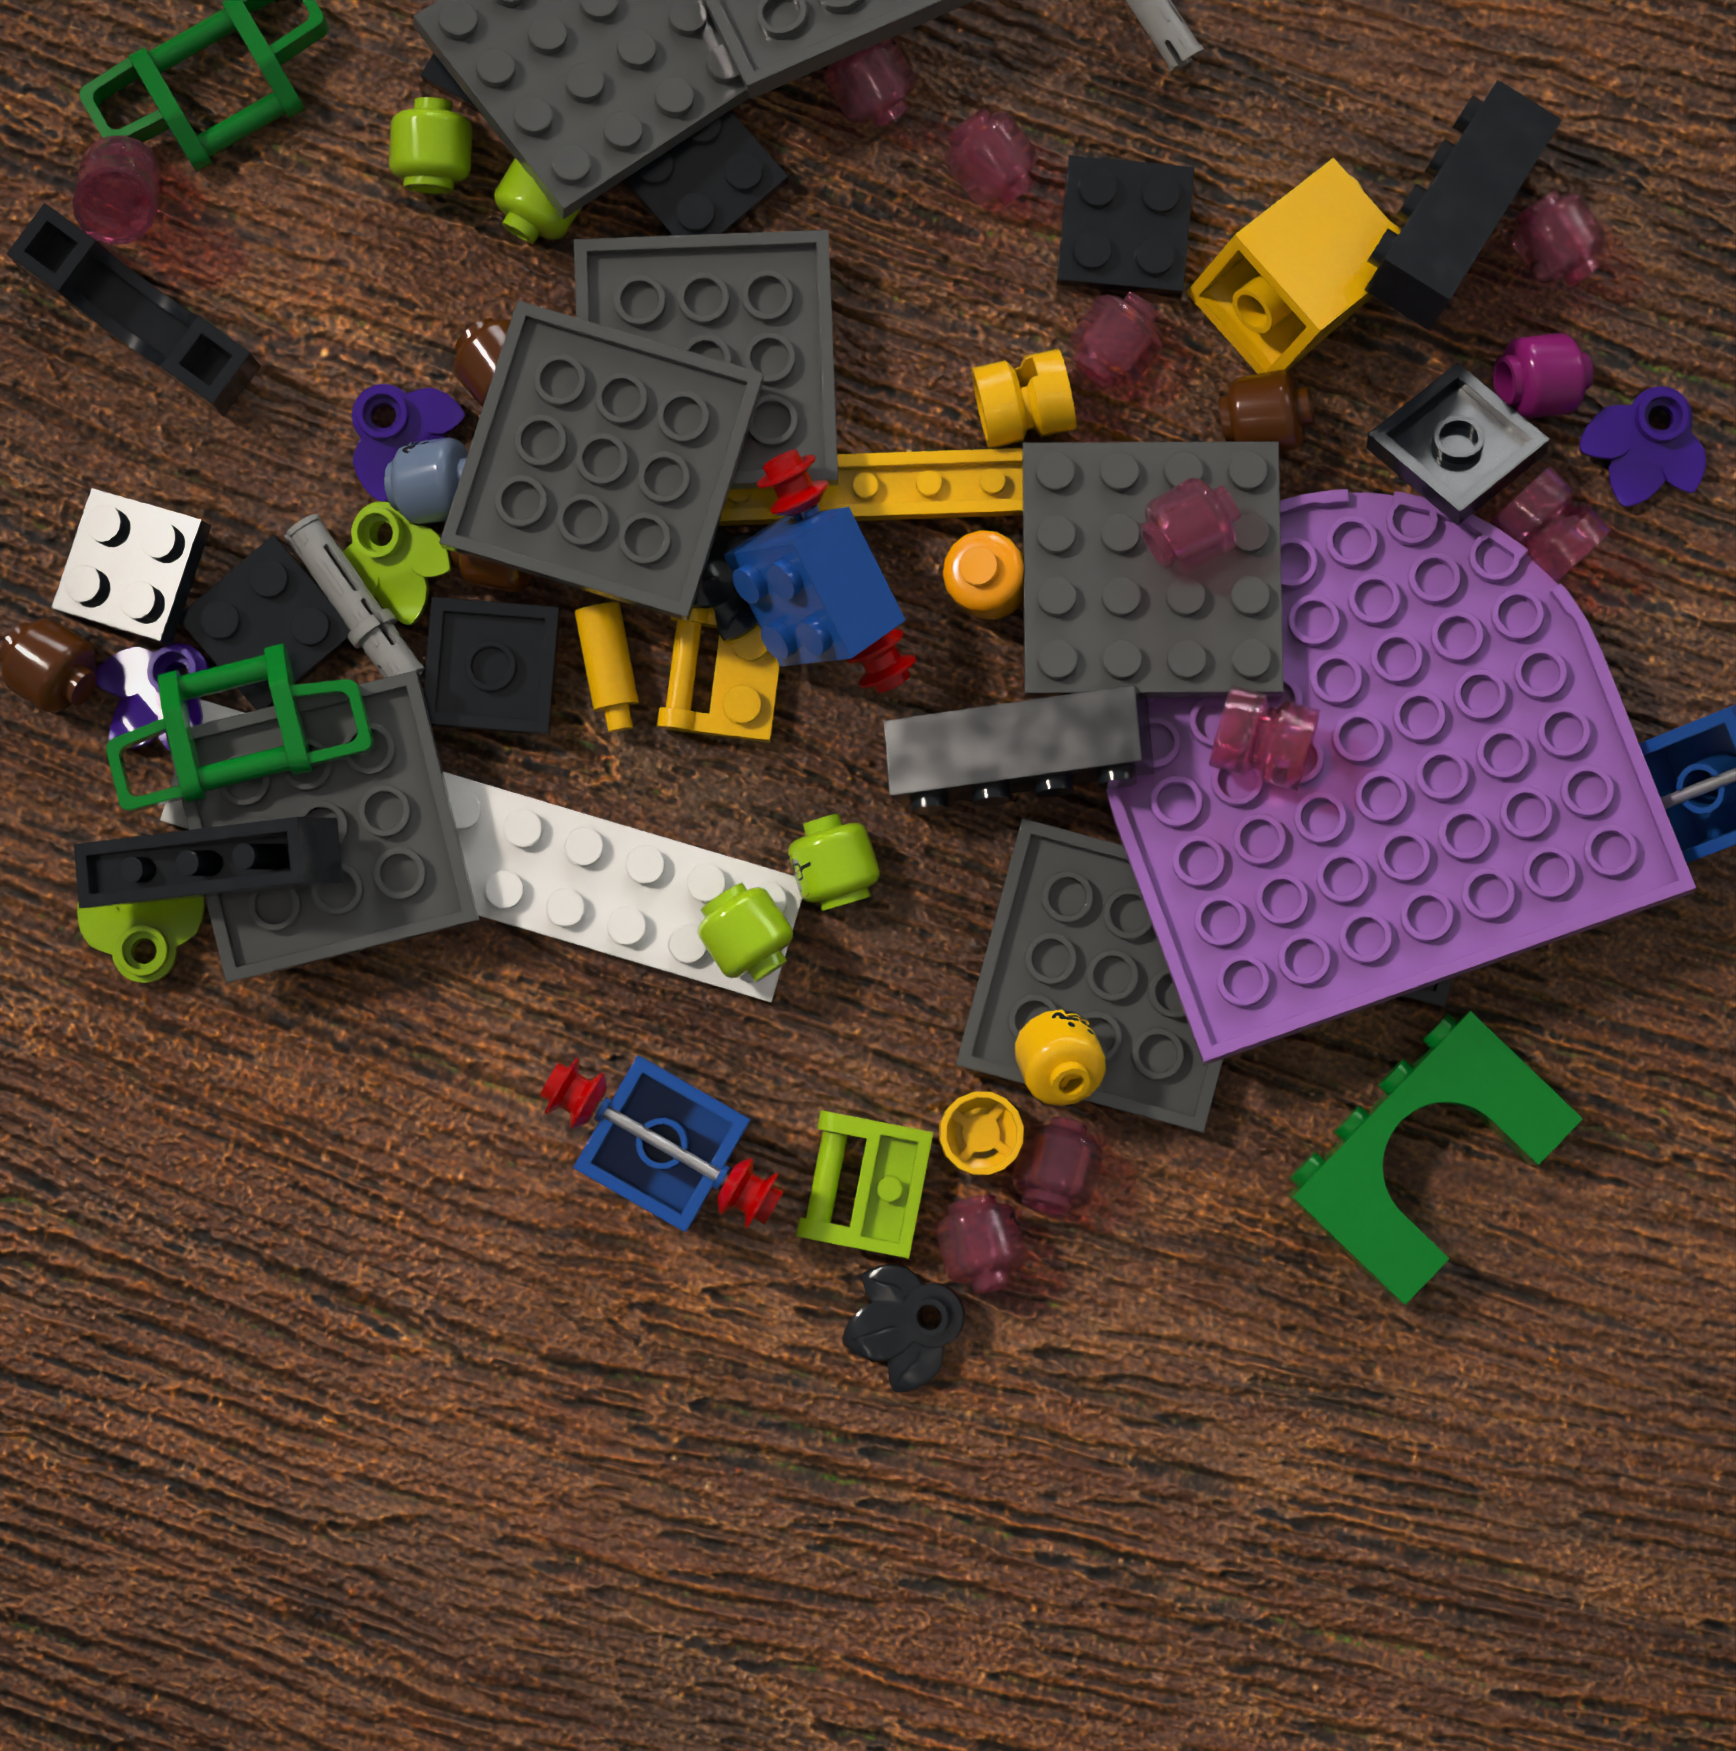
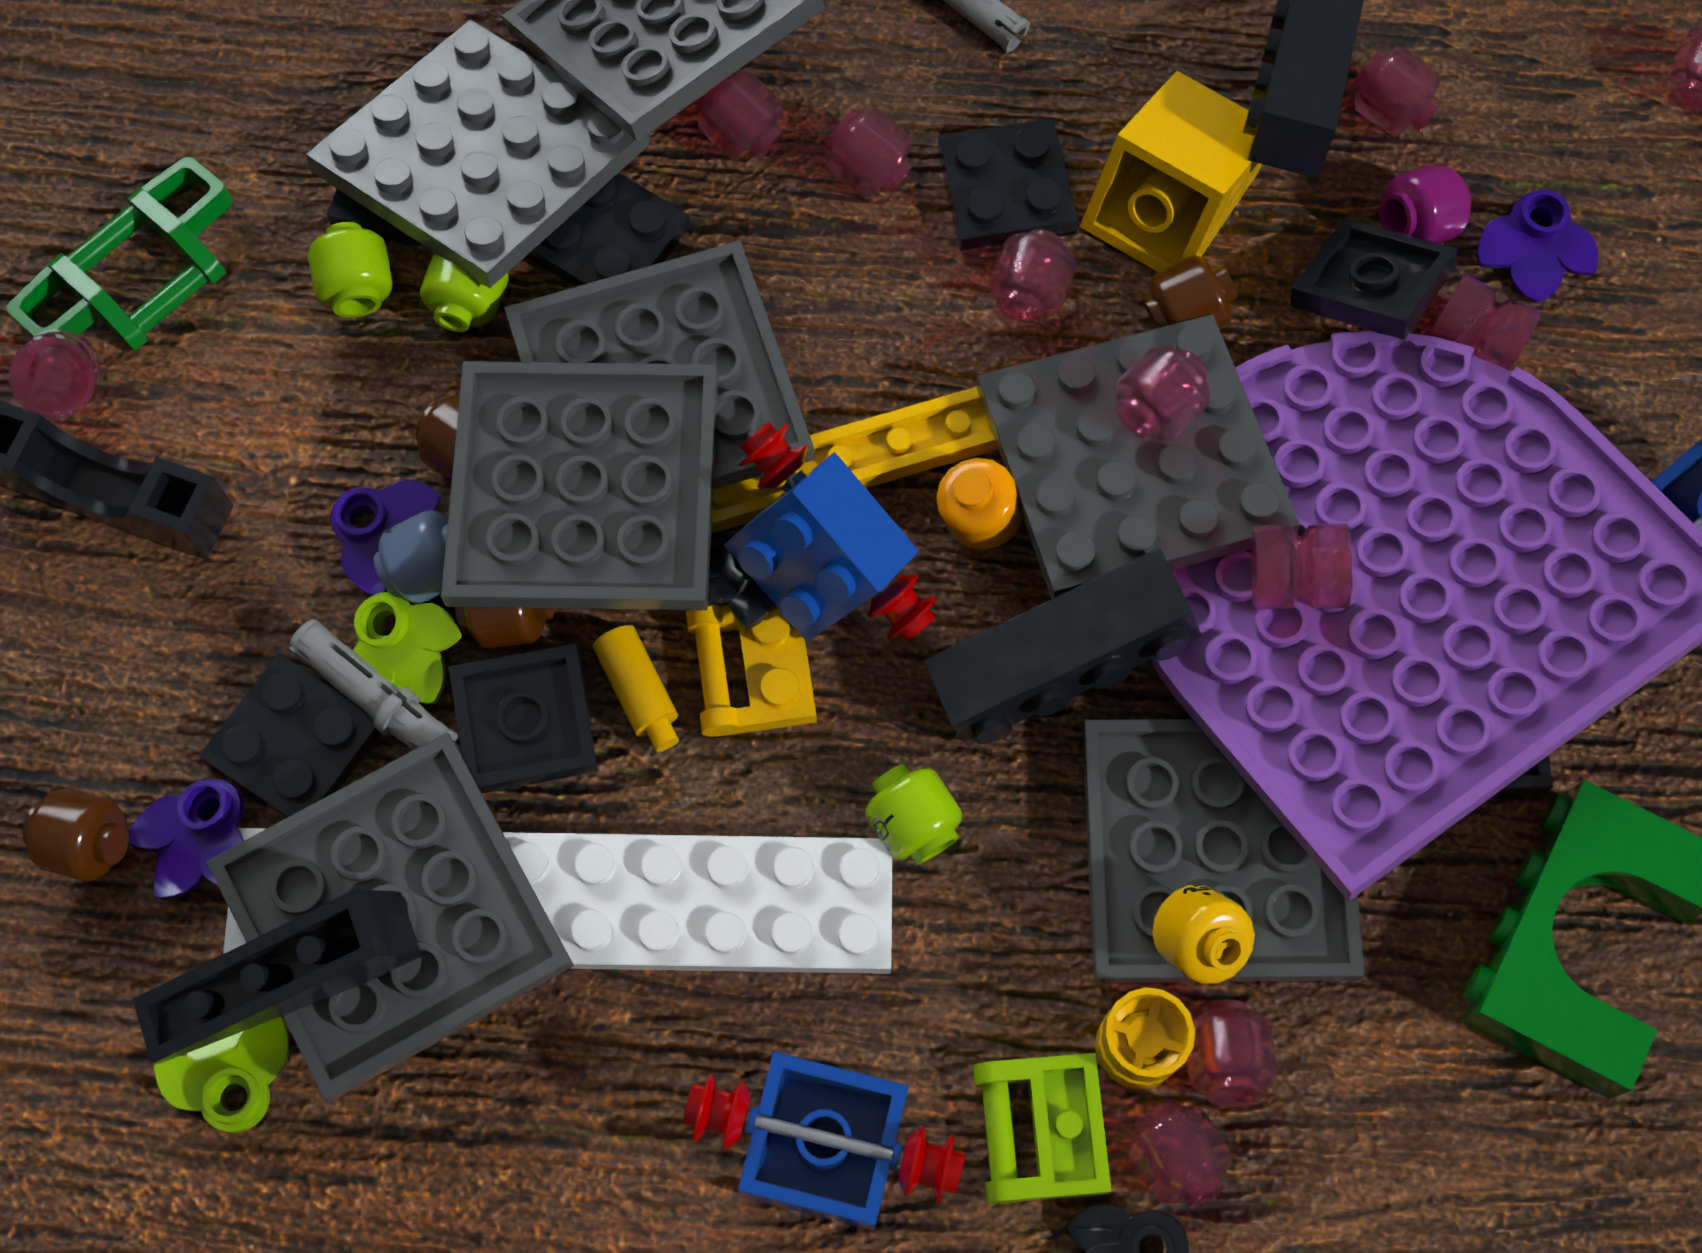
camera: 15 degrees left, 15 degrees down
(131, 566) = (142, 718): plate -> none
(198, 779) = (212, 843): green bar -> none
(745, 932) = (847, 899): lime head -> none
(1024, 398) = (960, 344): yellow wheel -> none

